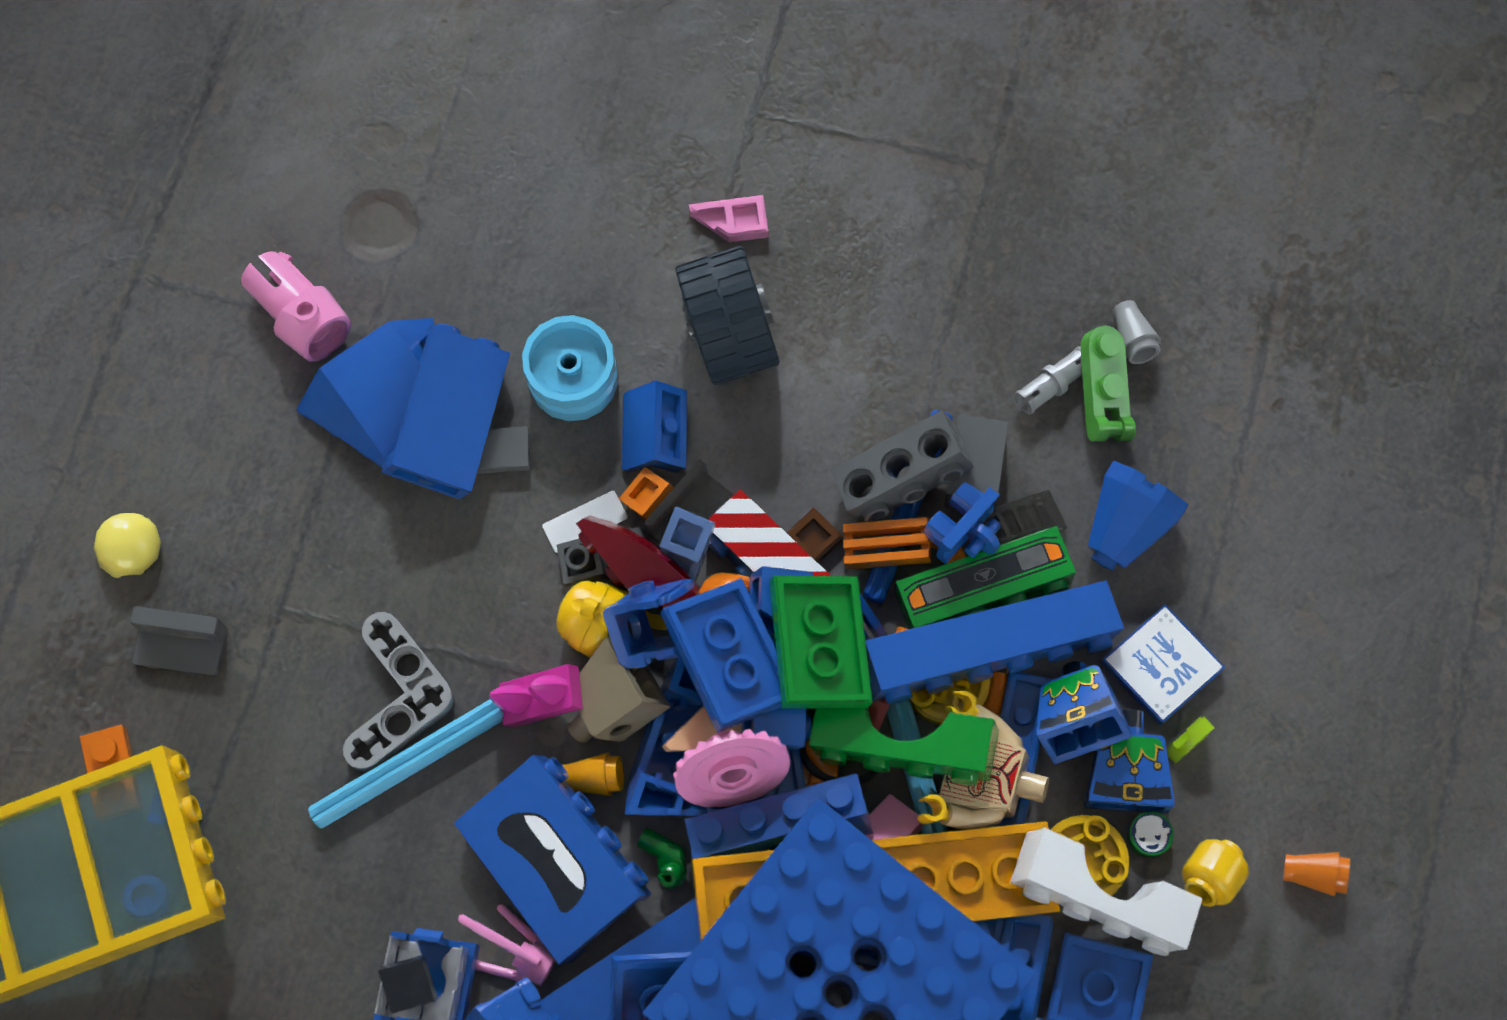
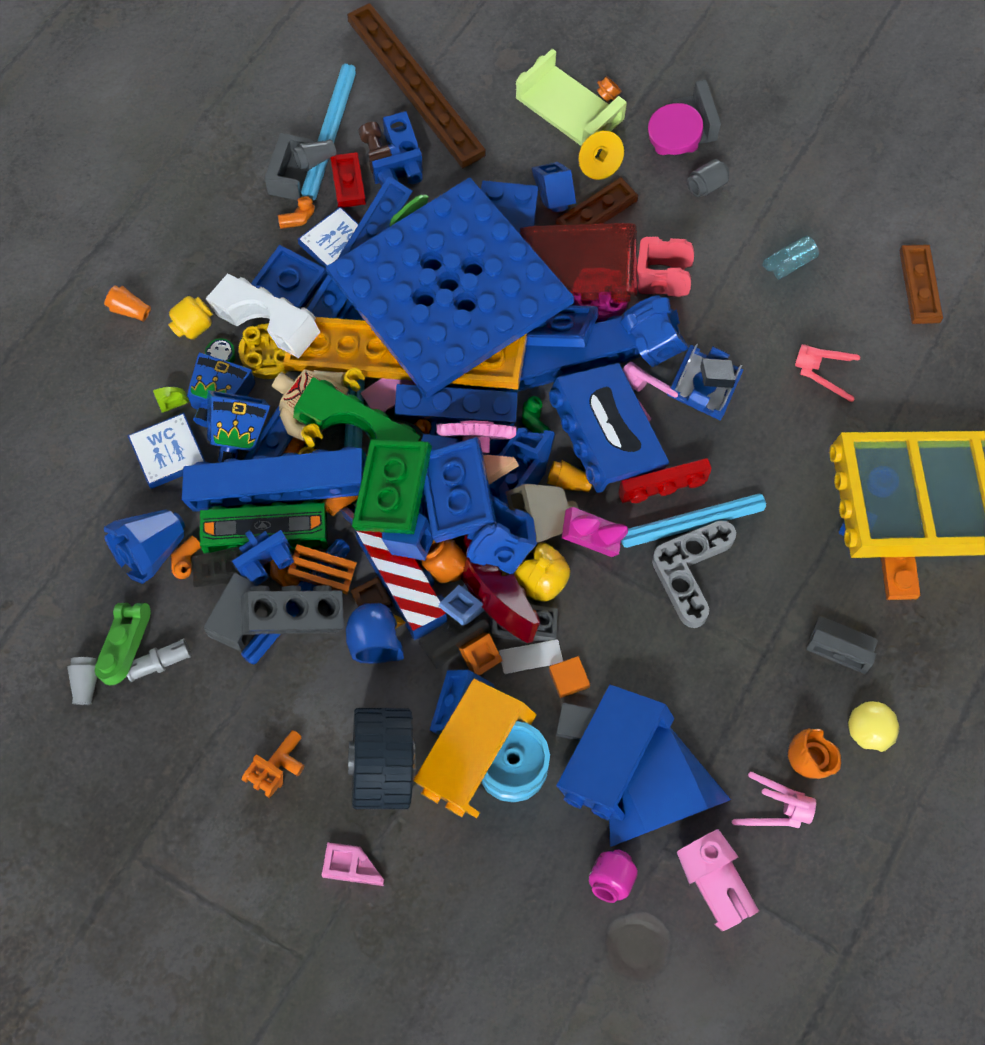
camera: 170 degrees left, 5 degrees down
(198, 480) = (813, 754): none -> orange hair
(213, 415) = (796, 805): none -> bright pink plant
(421, 279) = (613, 876): none -> dark pink head
(452, 803) = (665, 481): none -> red plate
(528, 504) = (569, 677): none -> orange tile
(622, 366) = (469, 746): none -> light orange panel
(792, 476) = (372, 633): none -> blue piece
(864, 290) = (270, 770): none -> orange arm
(1078, 518) = (181, 558): none -> orange arm

